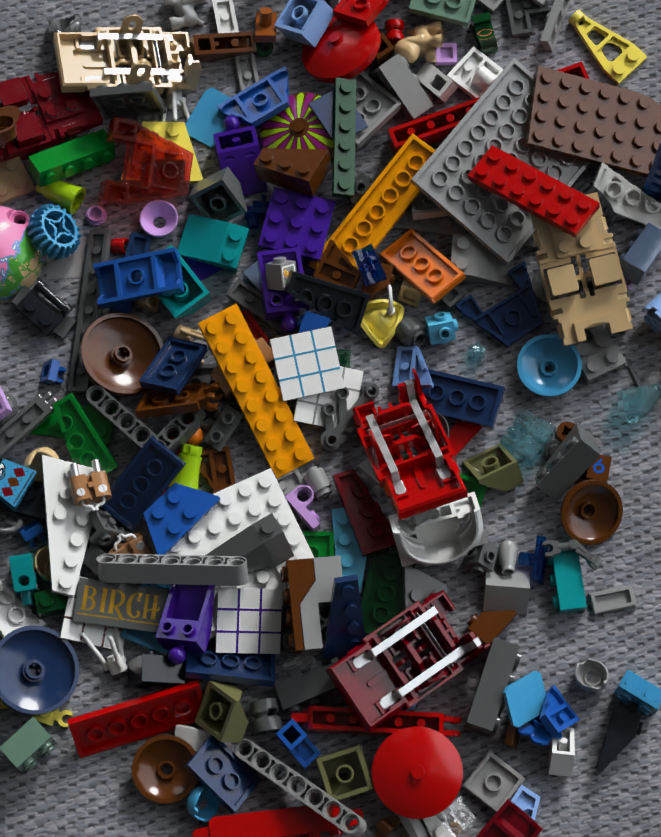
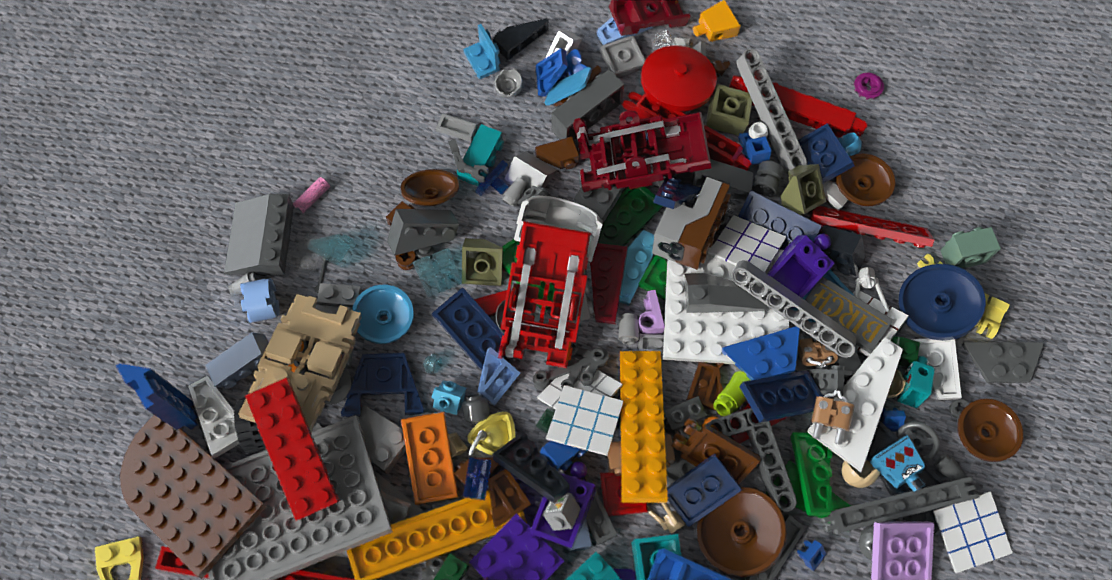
camera: 150 degrees left, 5 degrees down
(302, 761) = (758, 130): none -> white plate

